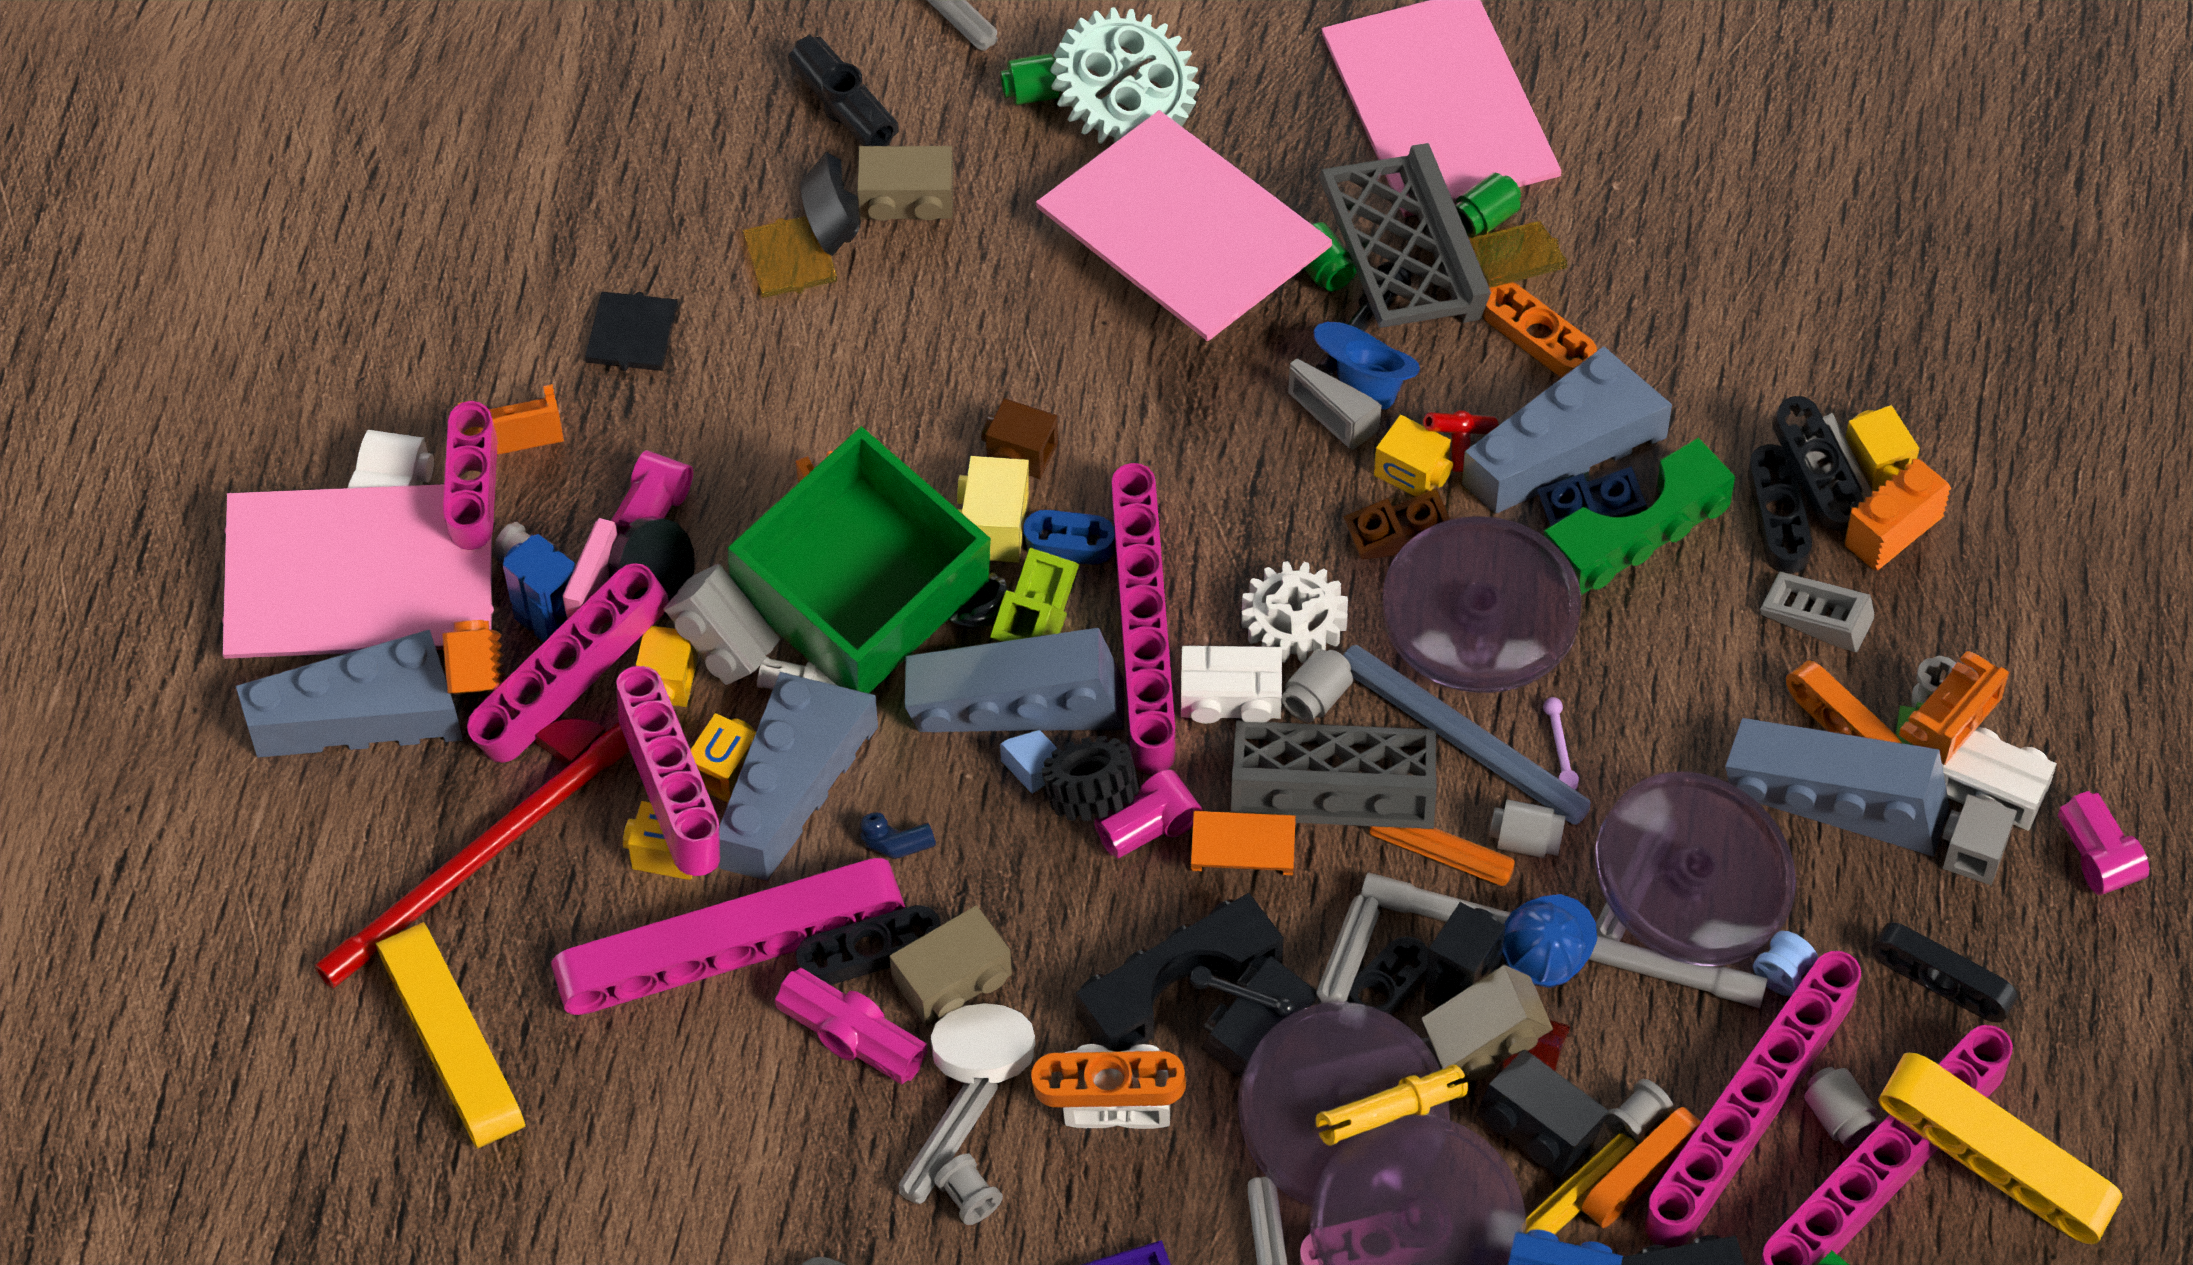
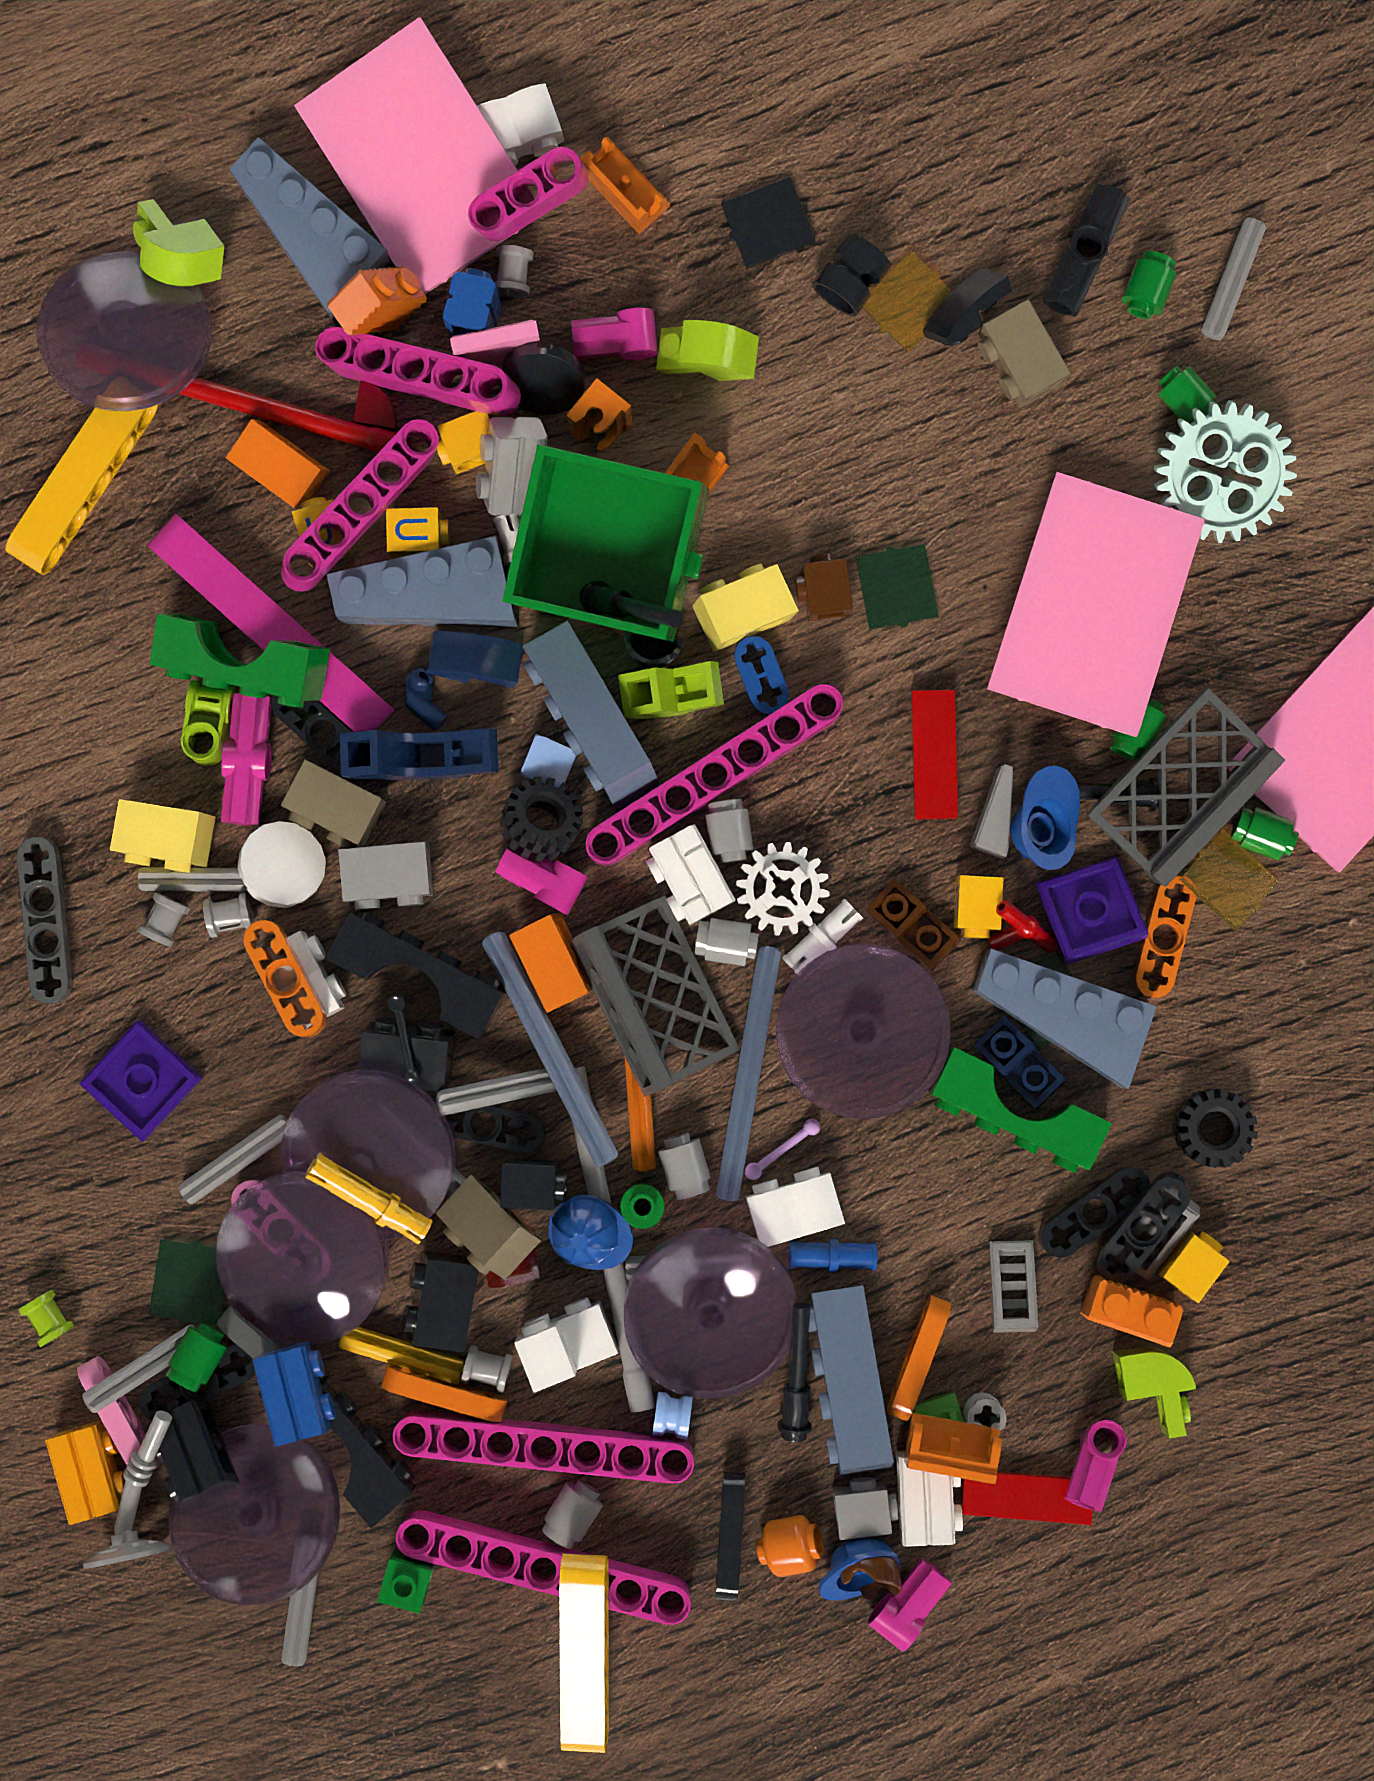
camera: 60 degrees right, 30 degrees up
(285, 828) = (177, 253): none -> lime brick
(332, 913) = (122, 335): none -> dish
(565, 842) = (277, 463): none -> orange hinge
(703, 1010) = (194, 647): none -> green arch
(718, 418) = (708, 348): none -> lime brick
(719, 520) = (602, 411): none -> orange hinge
(734, 277) = (855, 269): none -> black wheel
(781, 1037) = (207, 718): none -> lime piece
(878, 1137) = (162, 834): none -> light yellow brick
(881, 768) = (475, 656): none -> dark blue slope
(910, 61) = (1149, 285): none -> green brick
(939, 557) = (600, 598): none -> black pin
(959, 855) = (418, 755): none -> dark blue arch
(1003, 1123) = (228, 914): none -> light grey bush
(1055, 952) = (386, 874): none -> light grey brick
(1060, 387) = (896, 587): none -> clear green piece
(1205, 626) = (729, 830): none -> light grey brick
(1242, 432) = (934, 754): none -> red tile
(1334, 885) = (550, 1049): none -> sand blue axle
(1364, 603) = (823, 936): none -> white pin
(1477, 371) = (1091, 910): none -> dark purple tile
(1546, 872) = (638, 1191): none -> green brick
(1629, 747) = (794, 1208): none -> white brick
(1651, 1021) = (561, 1346): none -> white brick
(1698, 742) = (832, 1255): none -> blue pin
(1754, 349) = (1241, 1128): none -> black tyre
(1824, 838) = (794, 1422): none -> black pin
(1981, 521) = (1151, 1373): none -> lime brick
(1983, 920) = (790, 1546): none -> orange head
(2030, 607) = (1095, 1469): none -> dark pink piece
(2042, 862) = (863, 1569): none -> blue piece
(2045, 691) = (1023, 1498): none -> red tile

